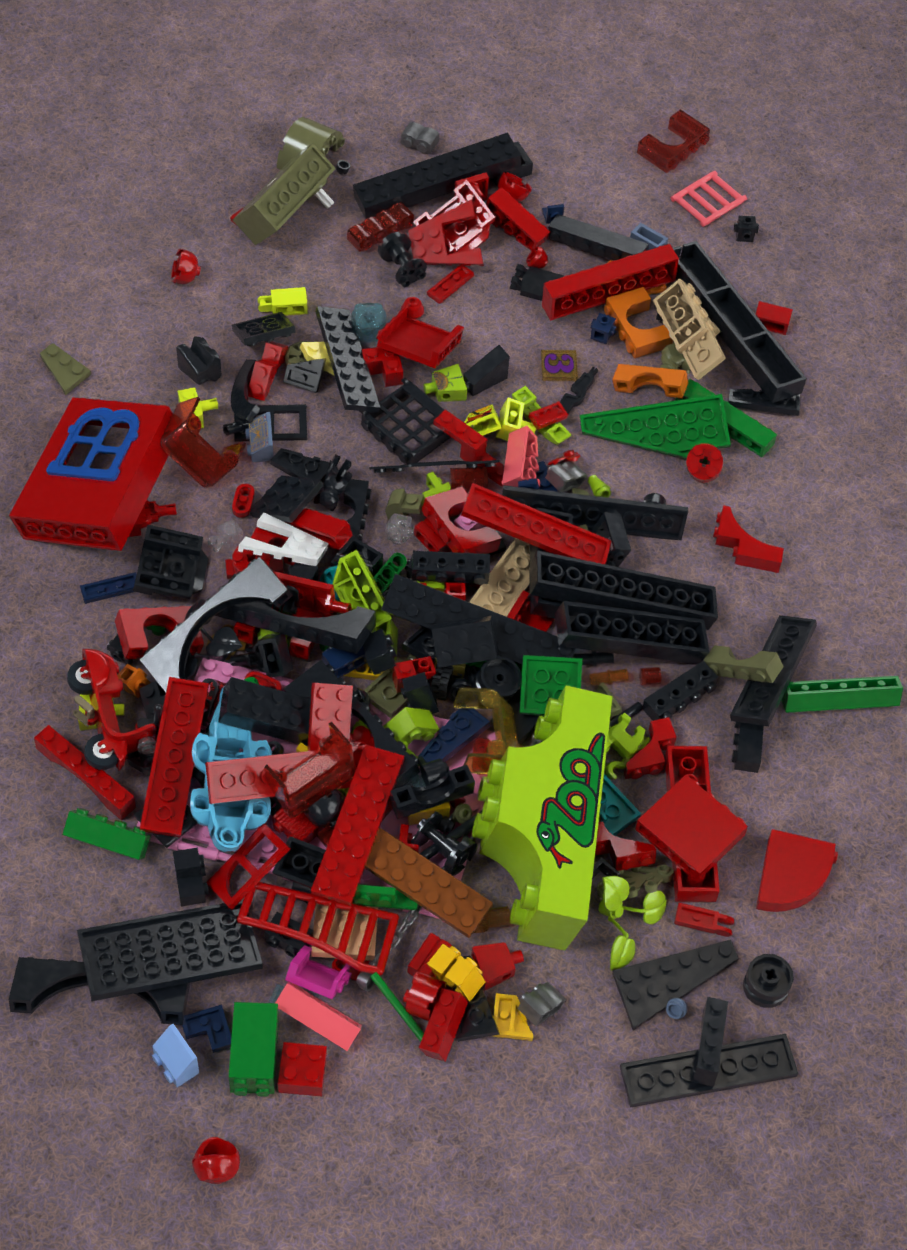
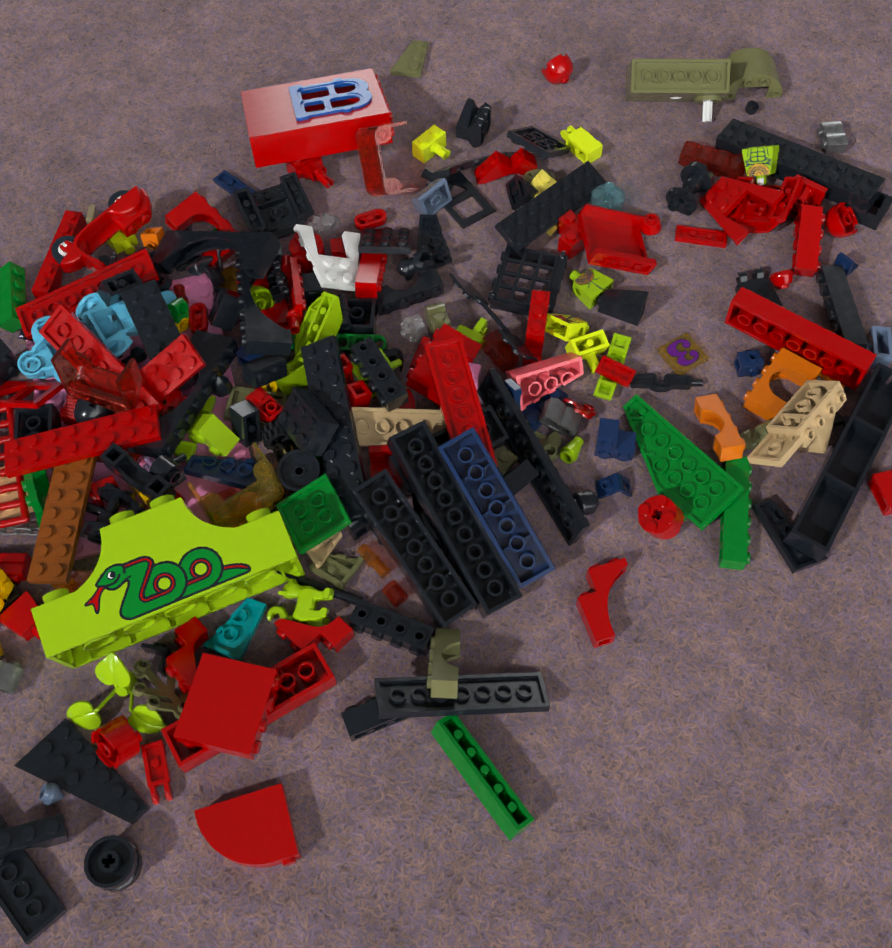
camera: 65 degrees right, 5 degrees up
(210, 713) = (112, 287): none -> black brick
(420, 195) = (760, 162): none -> lime torso
(613, 455) = (614, 442): none -> dark blue brick
(634, 550) = (497, 507): none -> dark blue brick
(649, 481) = (613, 484): none -> dark blue bracket
(666, 932) = (116, 742): none -> red brick

